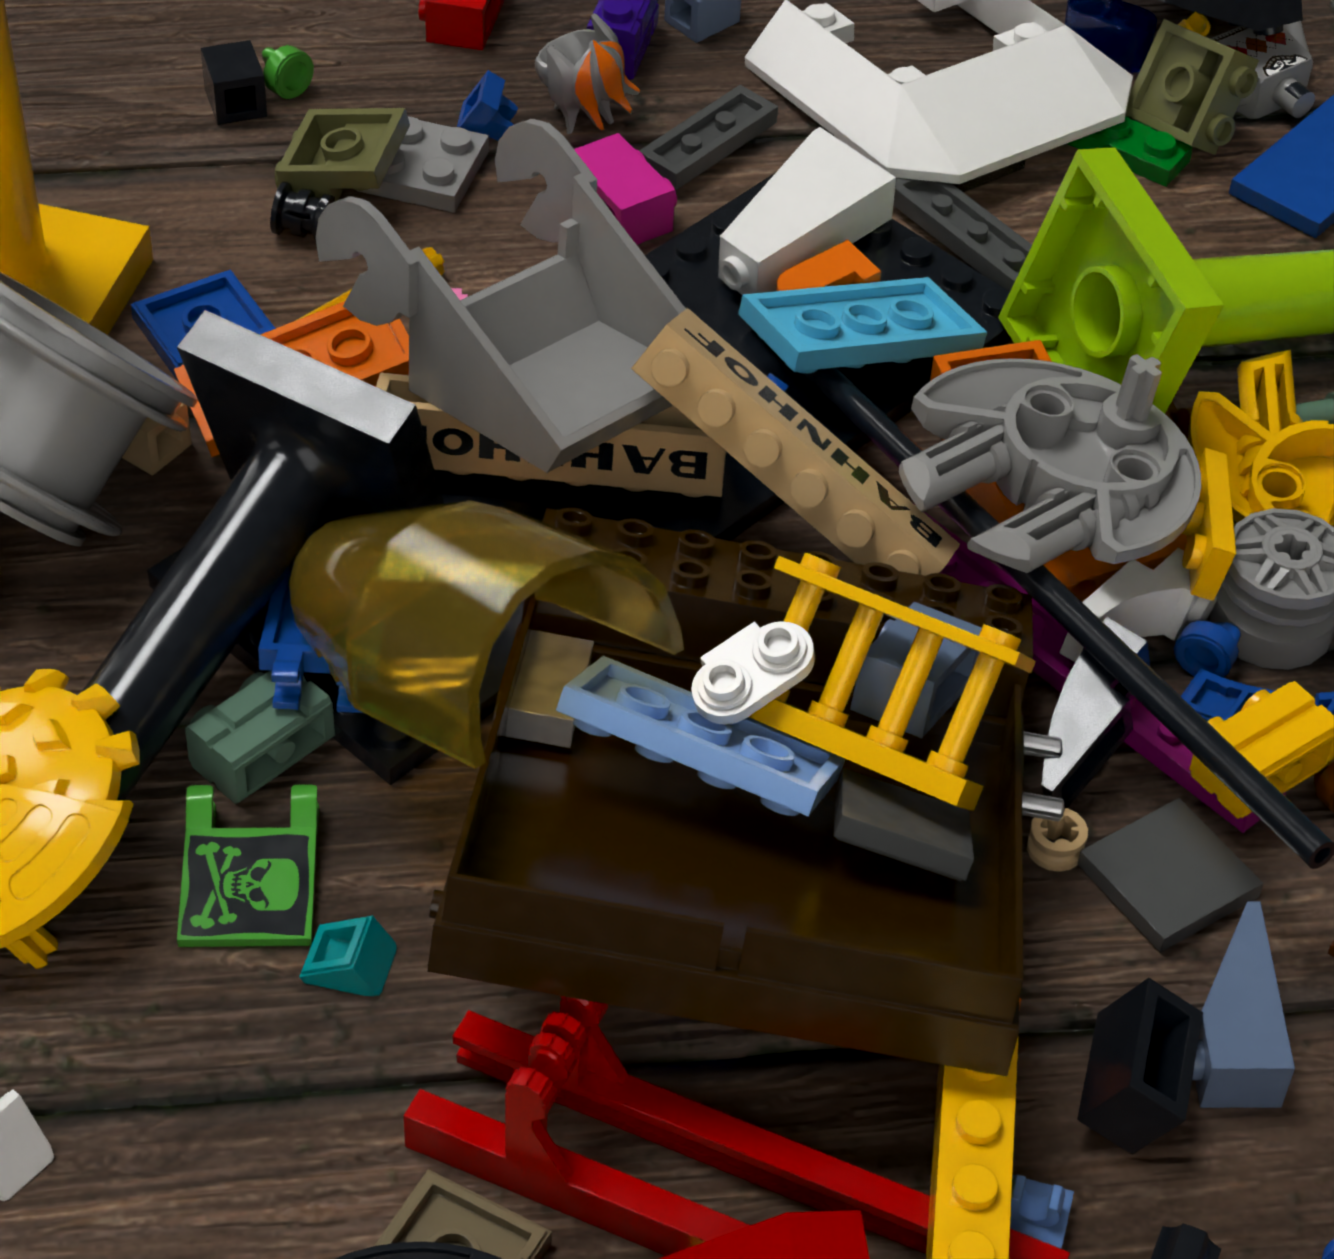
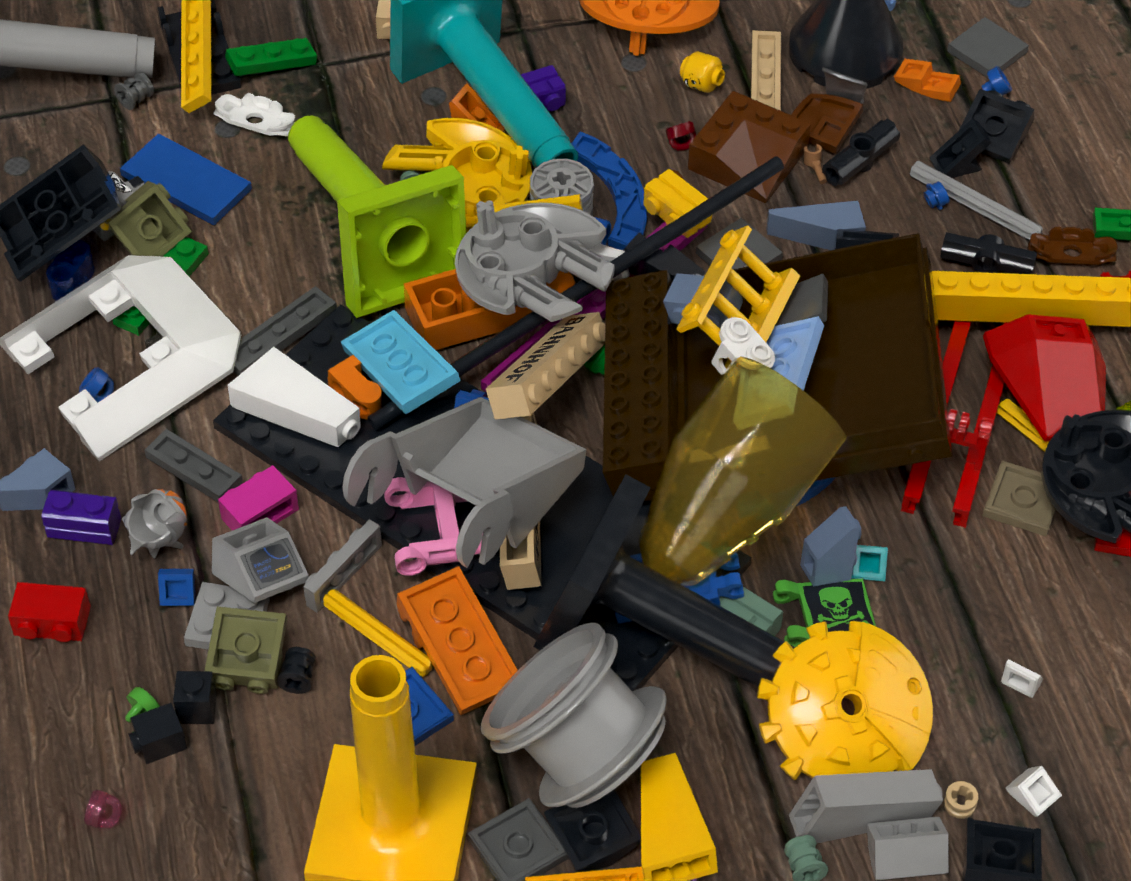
camera: 95 degrees left, 5 degrees up
(133, 30) = (96, 809): none -> clear pink tile
(276, 108) = (195, 697): none -> black brick
(349, 864) = (831, 549): none -> sand blue slope
(463, 170) = (258, 560): none -> light grey slope
(466, 255) = (343, 564): none -> light grey plate
(880, 47) = (95, 381): none -> blue tile

